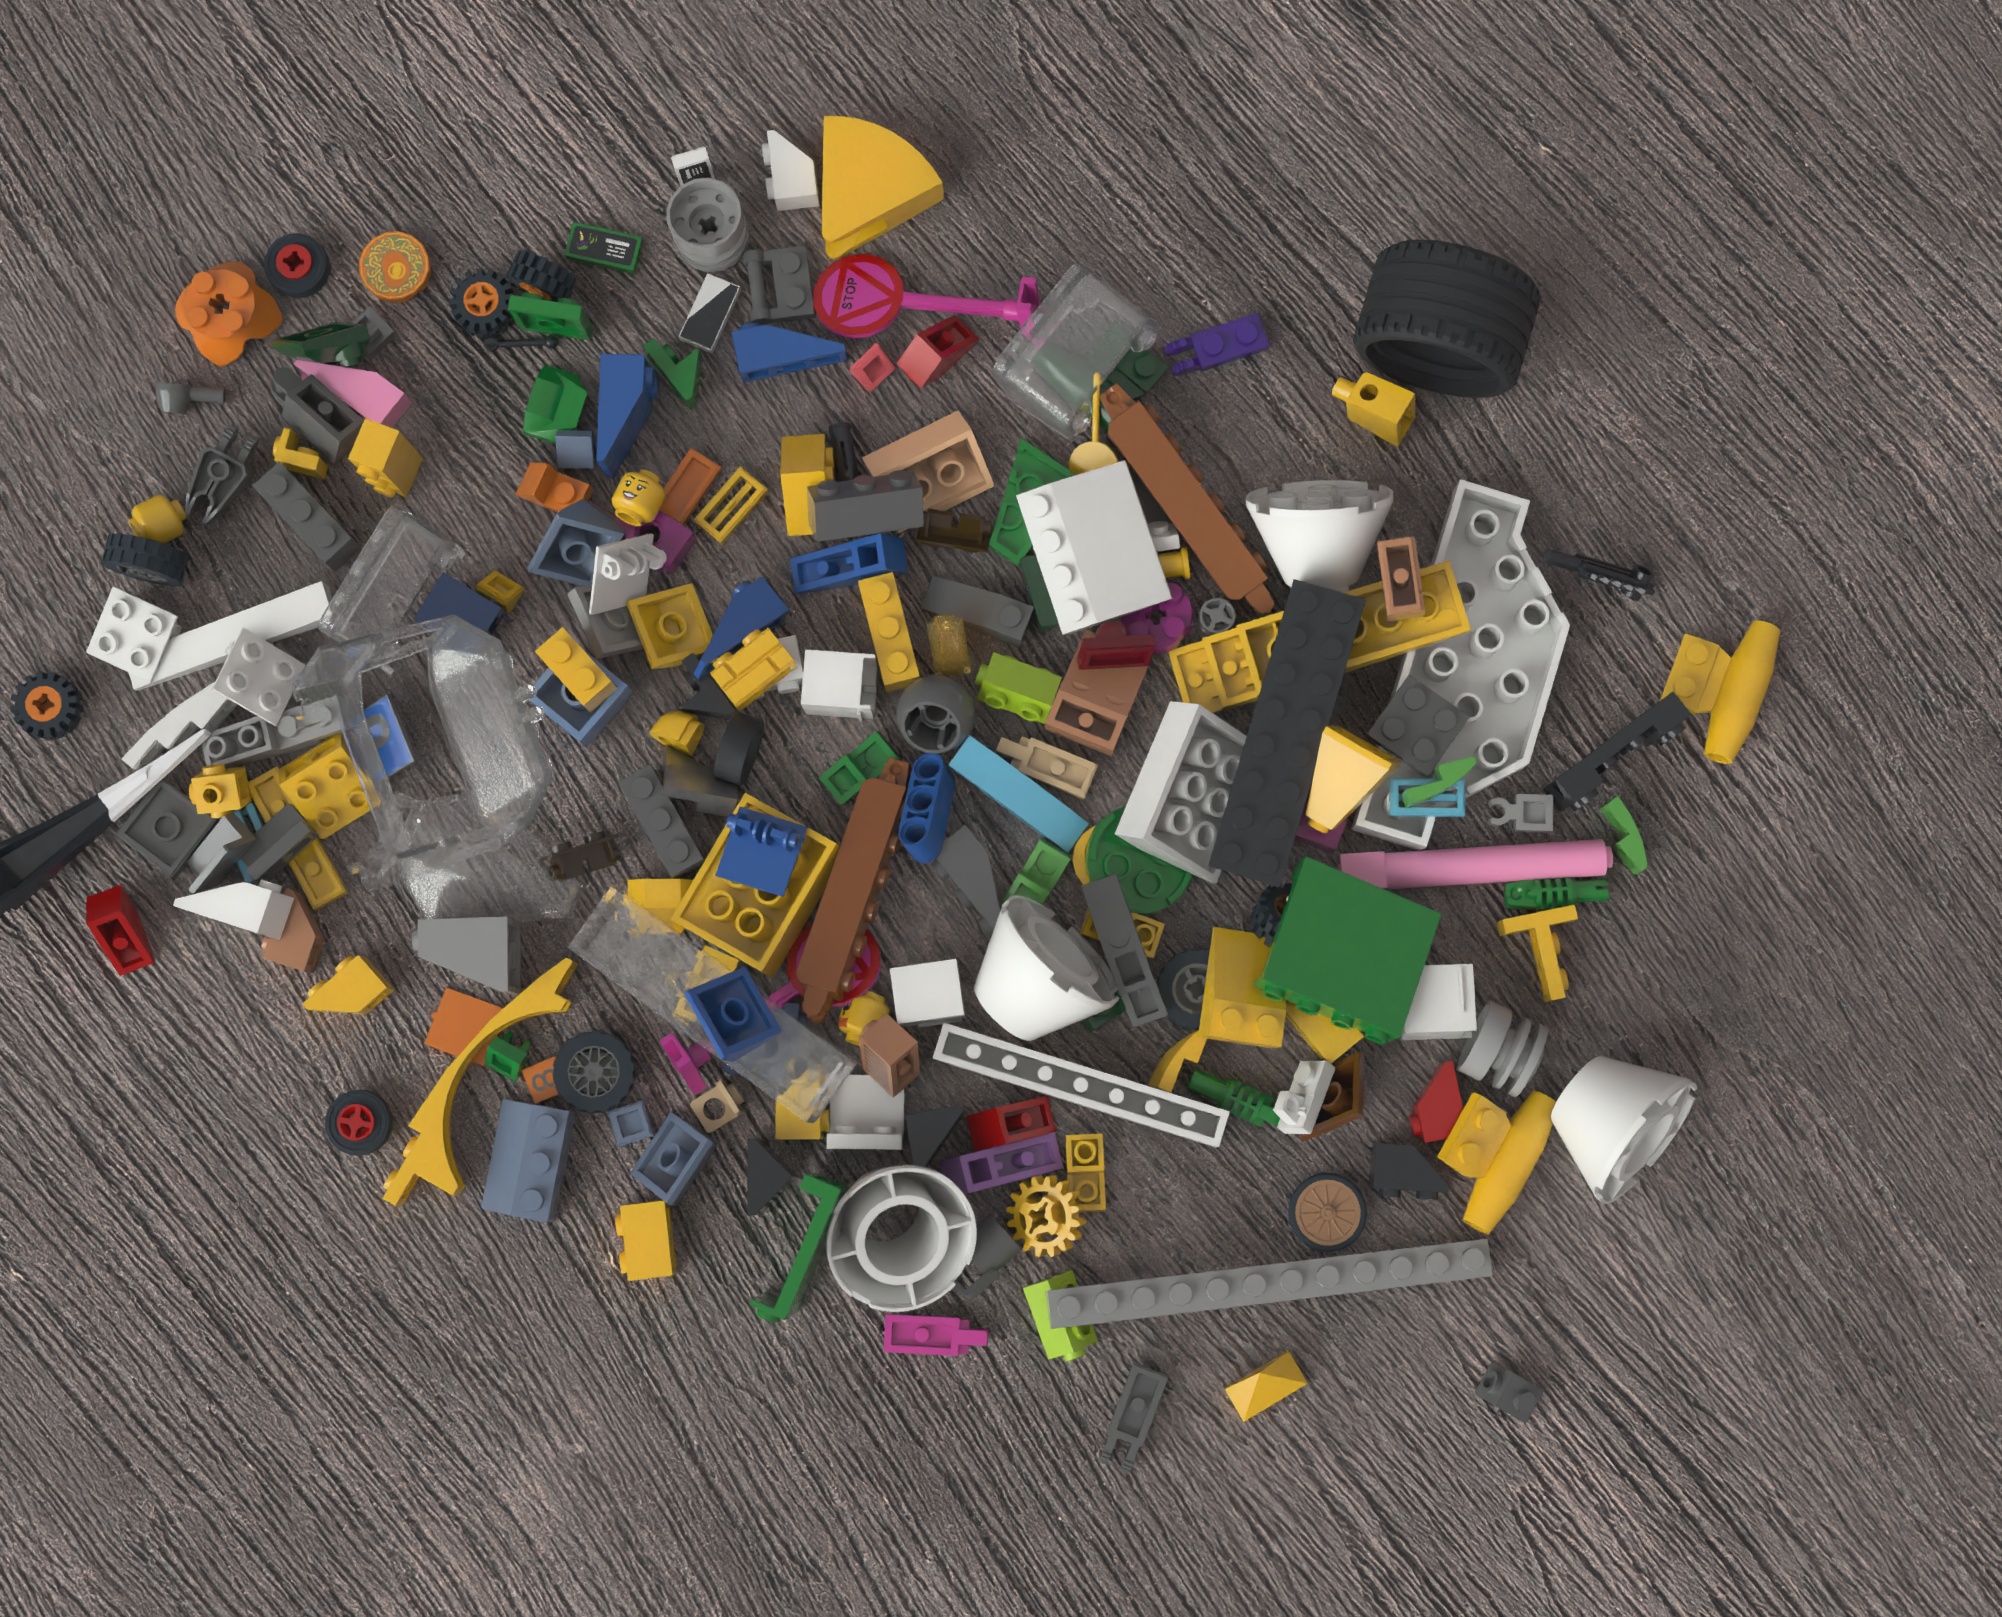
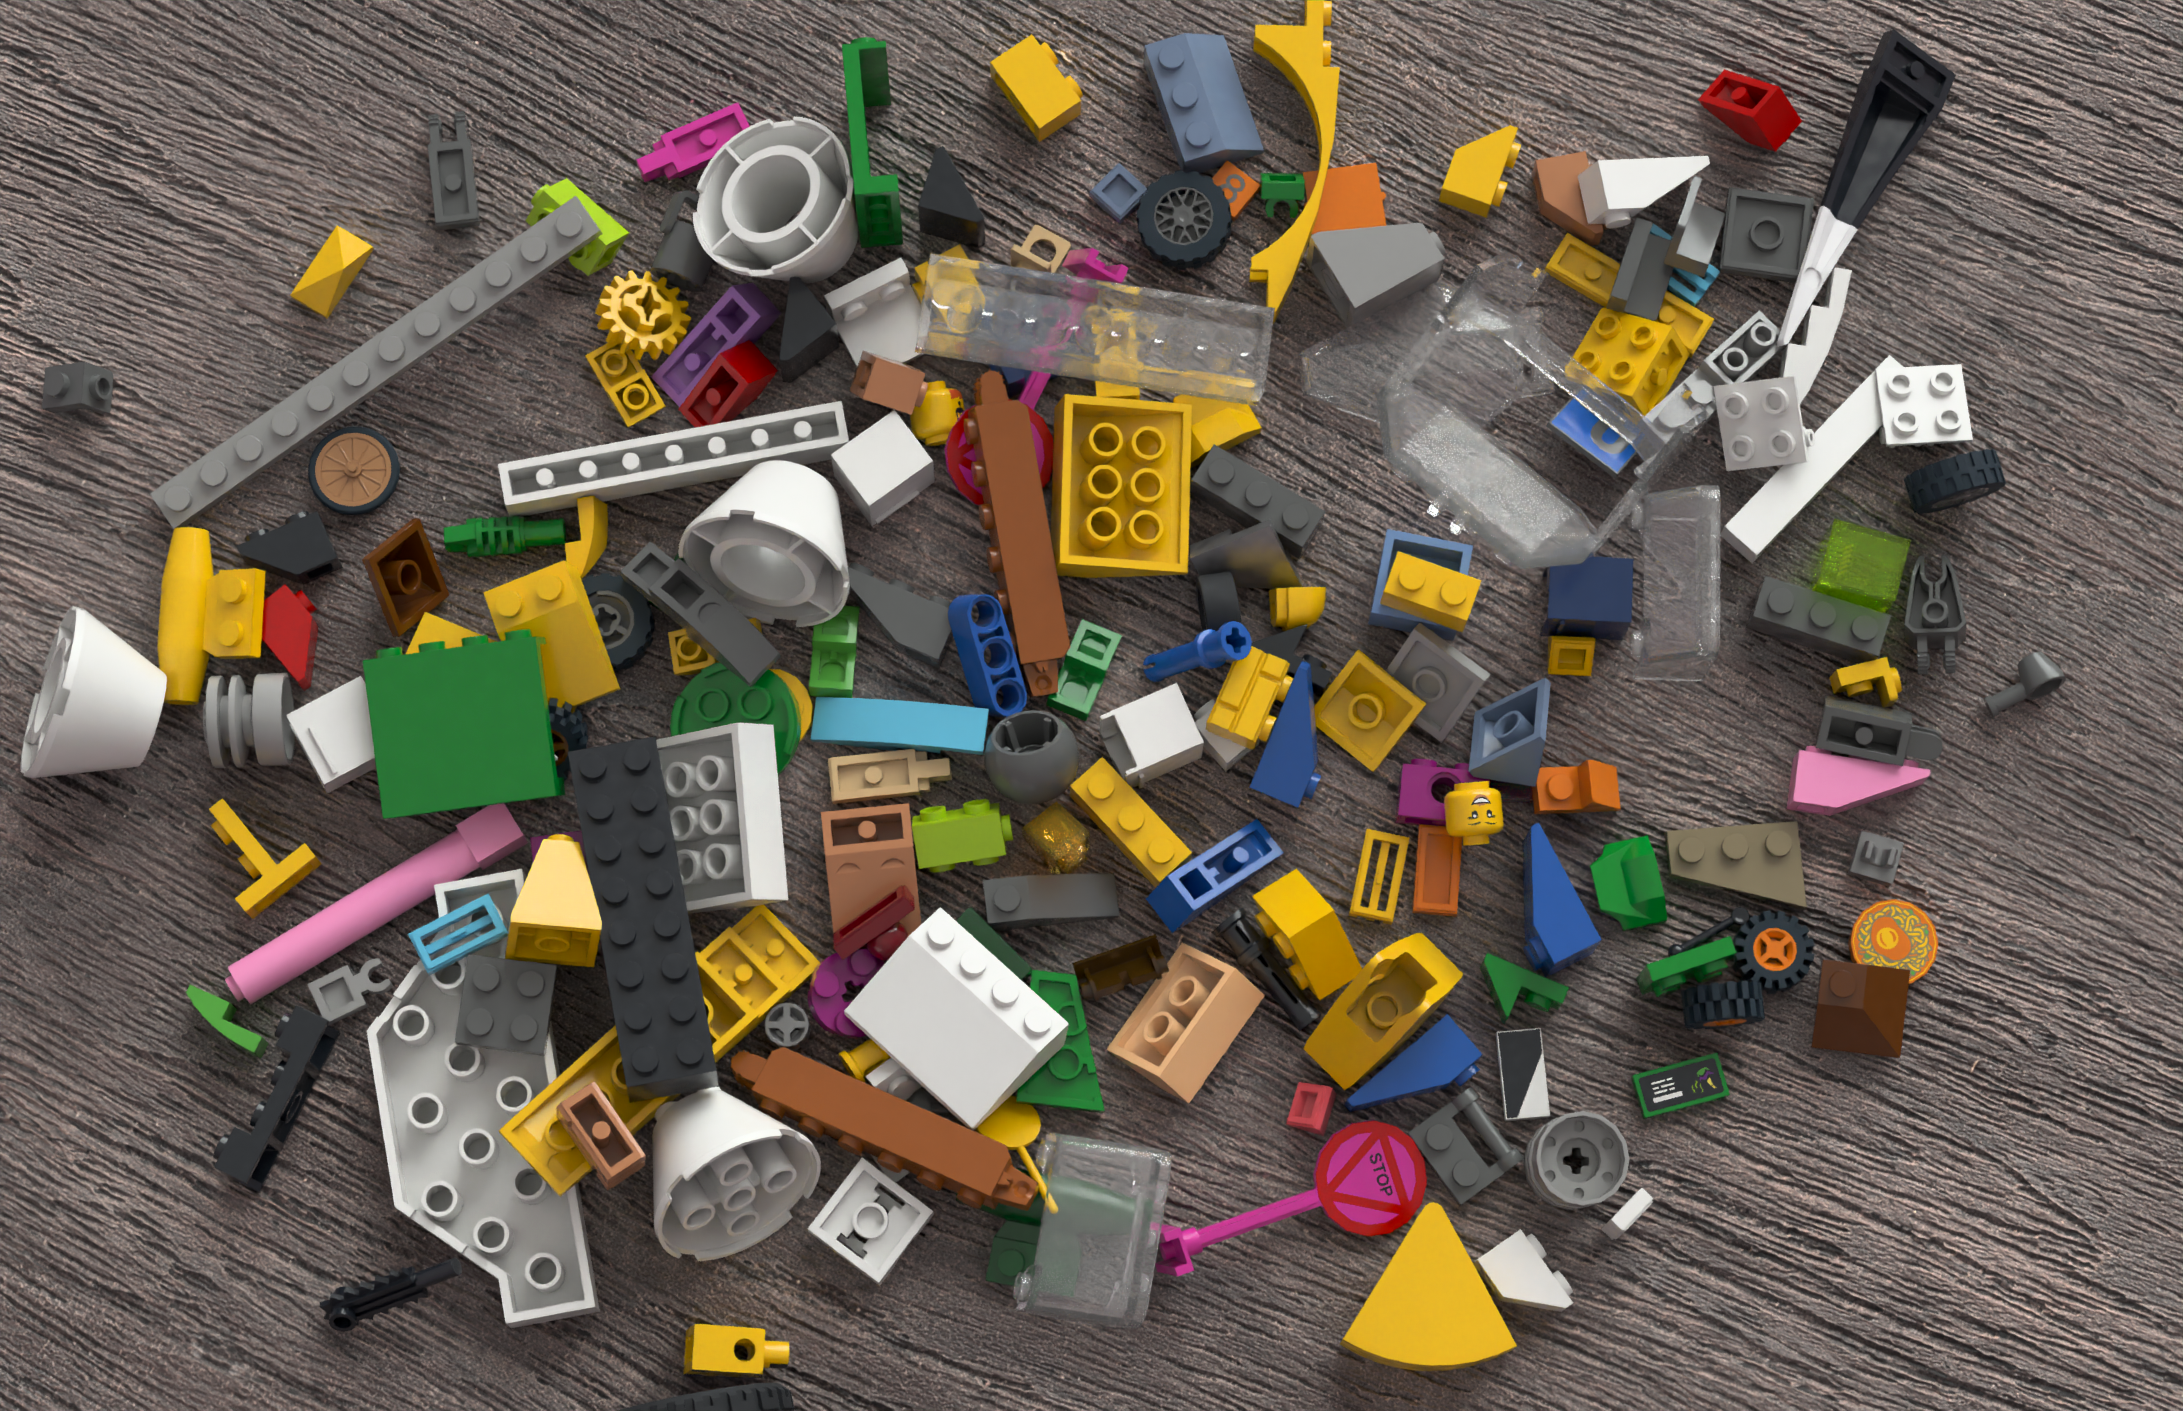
camera: 145 degrees right, 5 degrees down
(60, 710) = (1959, 303): black wheel -> none
(158, 519) = (1972, 535): yellow head -> none
(219, 790) = (1731, 293): yellow brick -> none
(250, 313) = (2014, 812): orange brick -> none
(253, 533) = (1860, 565): none -> clear neon green piece
(303, 277) = (1983, 895): black wheel -> none
(326, 344) = (1909, 807): dark green slope -> none
(345, 1120) = (1394, 35): black wheel -> none
(385, 459) = (1766, 712): yellow brick -> none
(445, 232) = (1860, 1008): none -> reddish brown slope
(465, 381) = (1742, 859): none -> dark tan wing
(567, 859) = (1312, 436): dark brown hinge -> none
(575, 449) = (1579, 845): sand blue tile -> none
(623, 572) = (1443, 726): white hinge -> none
(673, 1159) = (1055, 178): sand blue slope -> none
(733, 1014) = (1062, 315): blue slope -> none
(761, 851) = (1134, 515): blue hinge -> none
(763, 716) = (1207, 650): none -> blue pin
(780, 396) = (1382, 1008): none -> yellow piece
(865, 505) = (1226, 930): dark grey brick -> none
(936, 350) = (1248, 1161): red slope -> none
(1220, 345) = (941, 1339): dark purple hinge -> none
(1236, 451) = (855, 1209): none -> white brick
(1303, 1101) = (433, 567): white hinge -> none
(1445, 775) = (444, 959): bright green slope -> none
(1553, 893) = (273, 920): green hinge -> none
(1725, 685) = (192, 1243): yellow plate -> none

